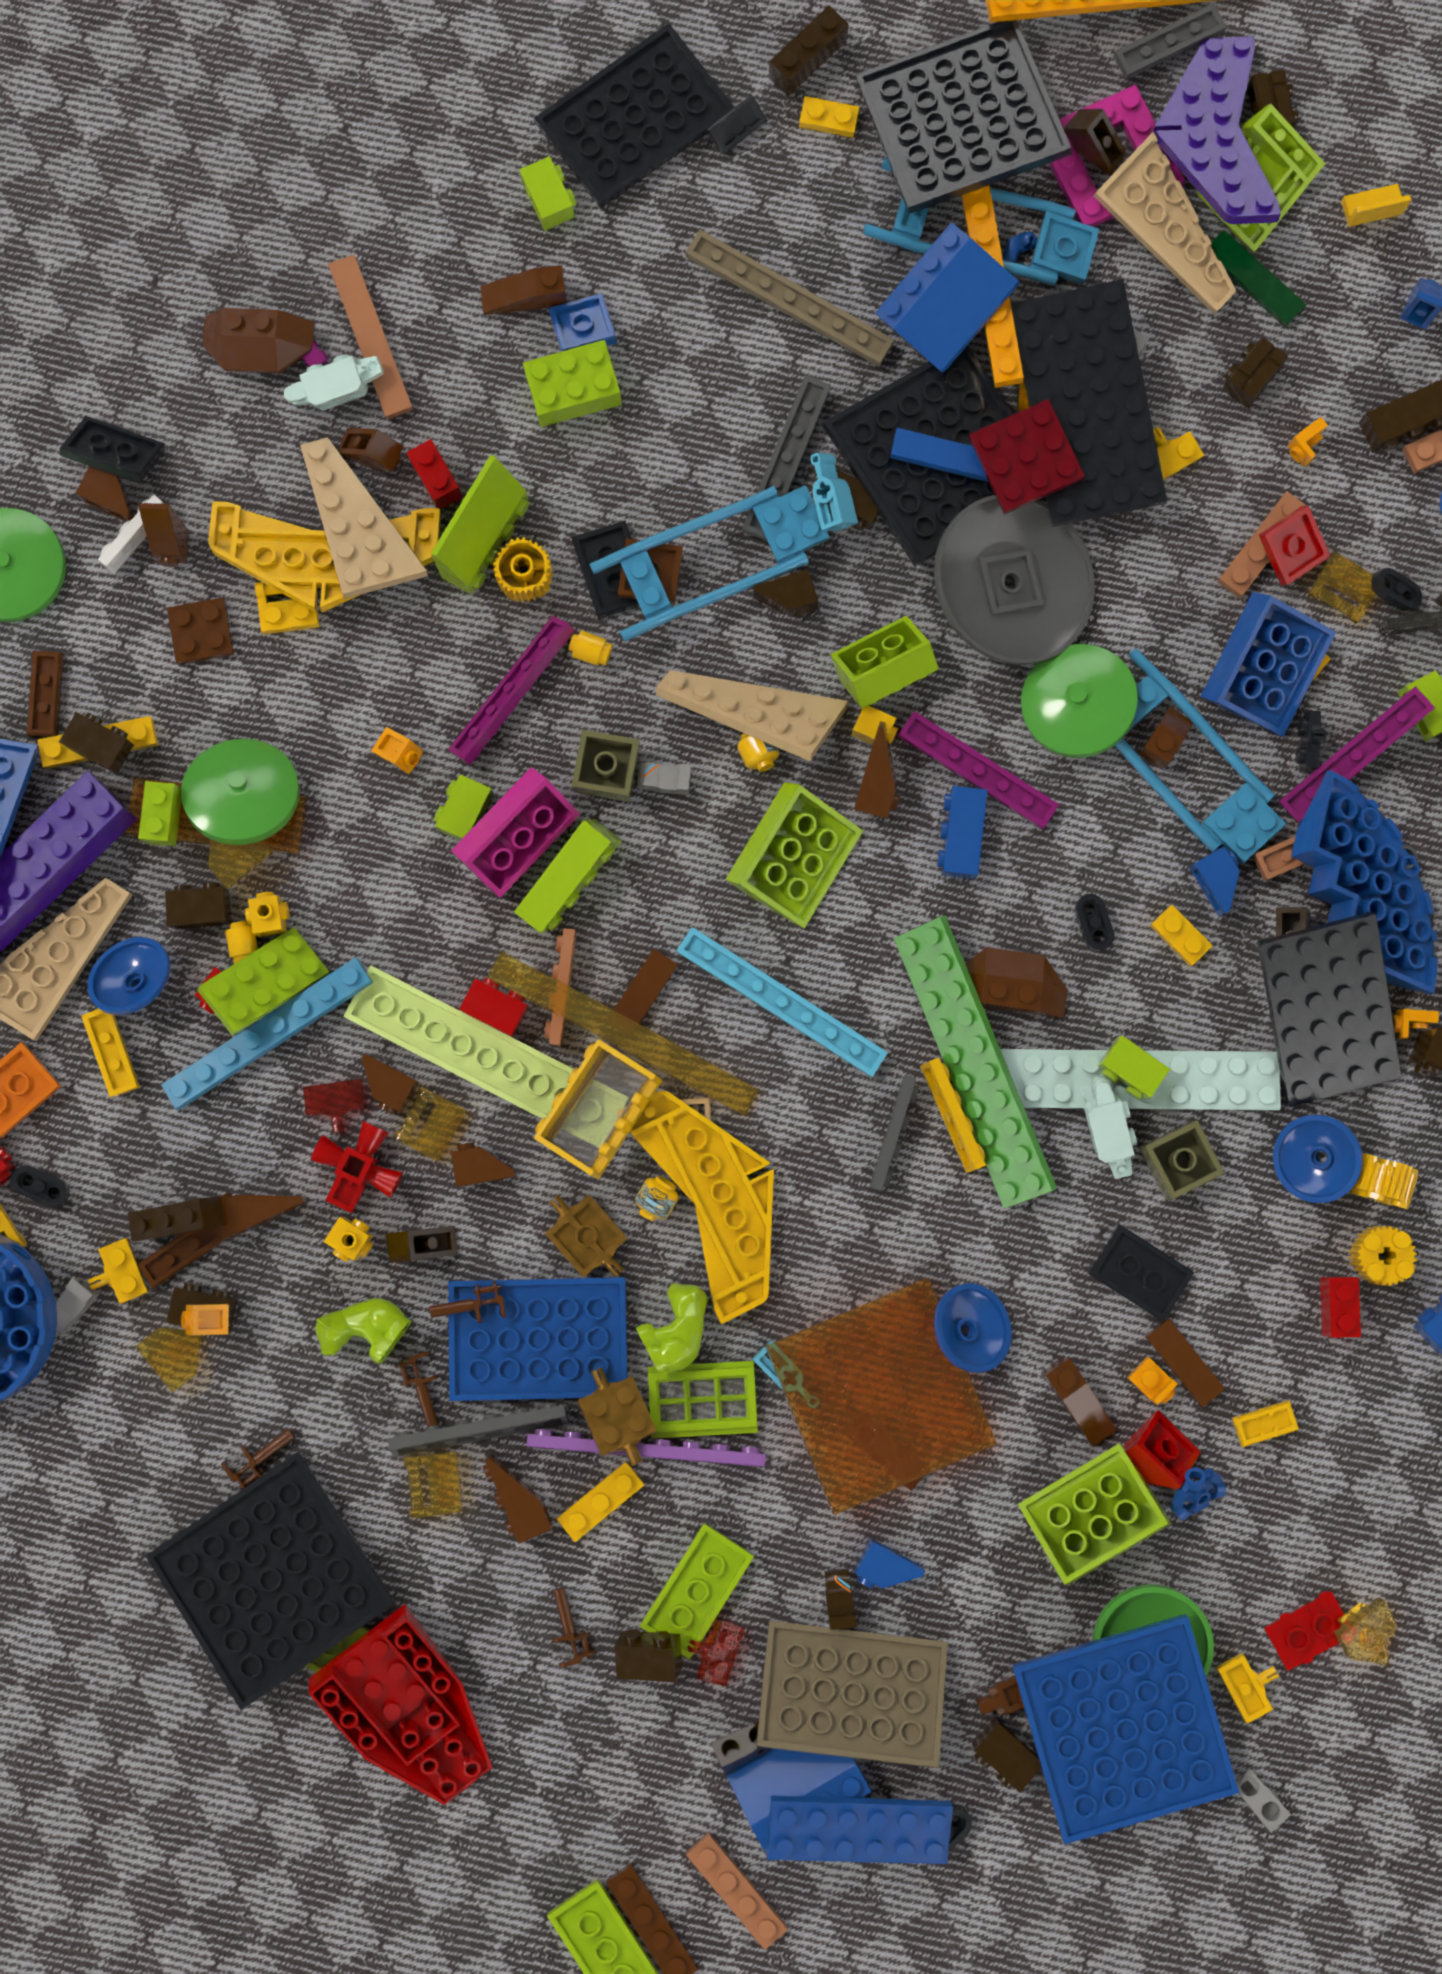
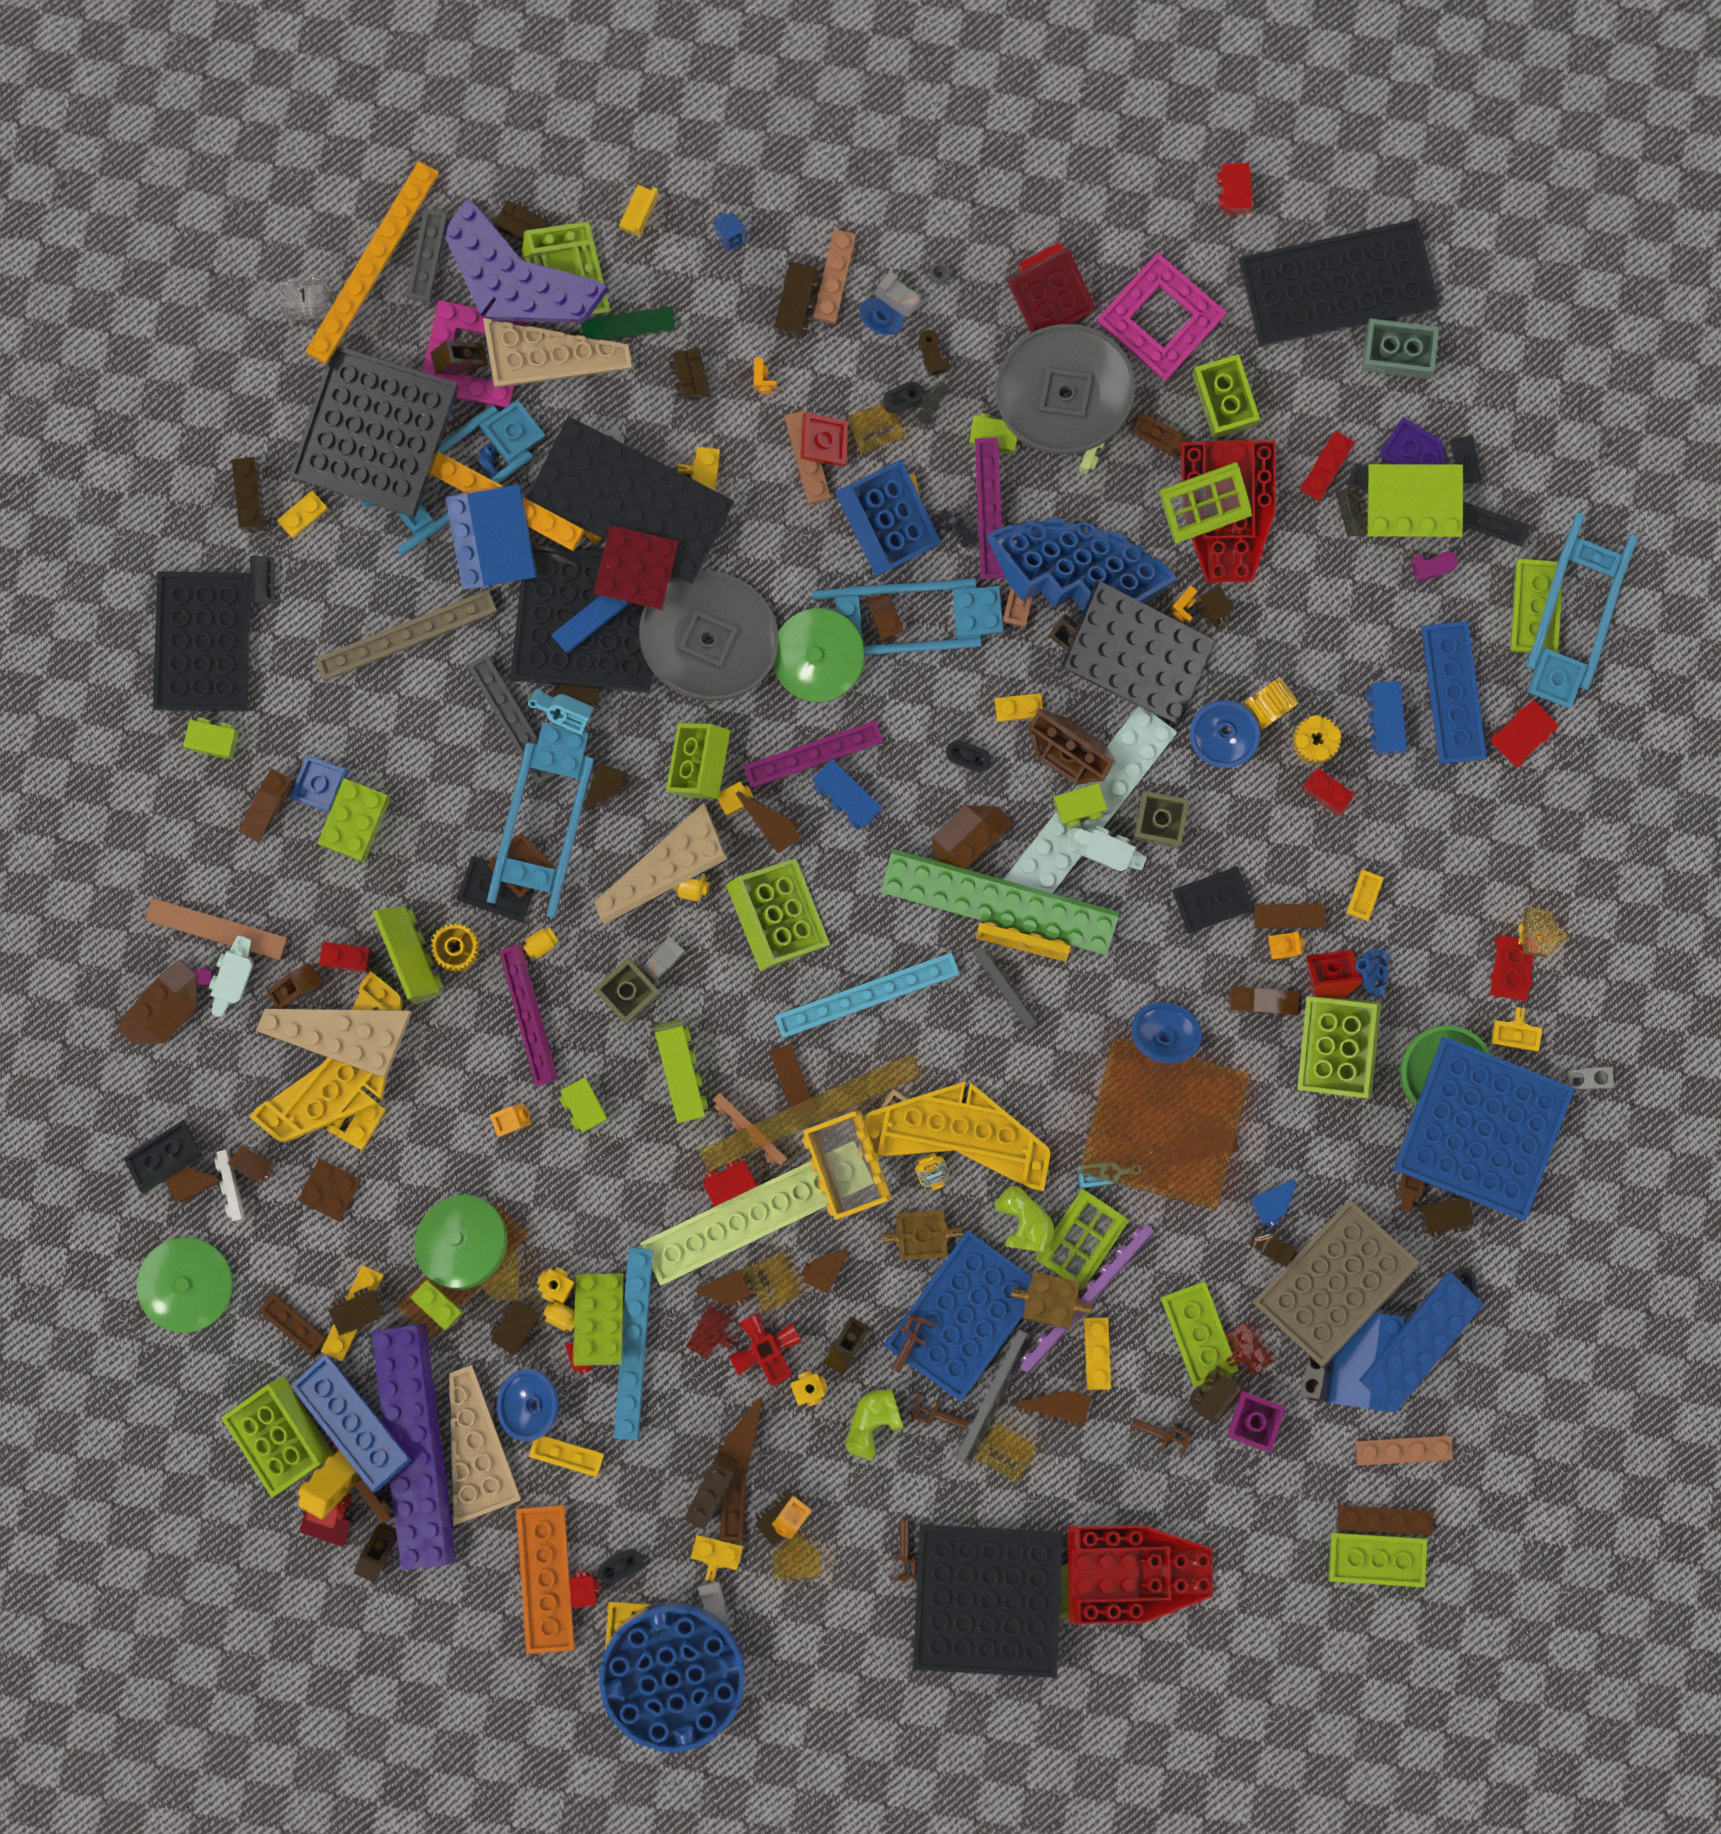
camera: 55 degrees left, 0 degrees up
(515, 832) = (626, 1083): dark pink brick -> none
(650, 1719) = (1256, 1422): none -> magenta slope
(1180, 1015) = (1069, 748): none -> reddish brown wedge
(1218, 878) = (1000, 656): blue slope -> none

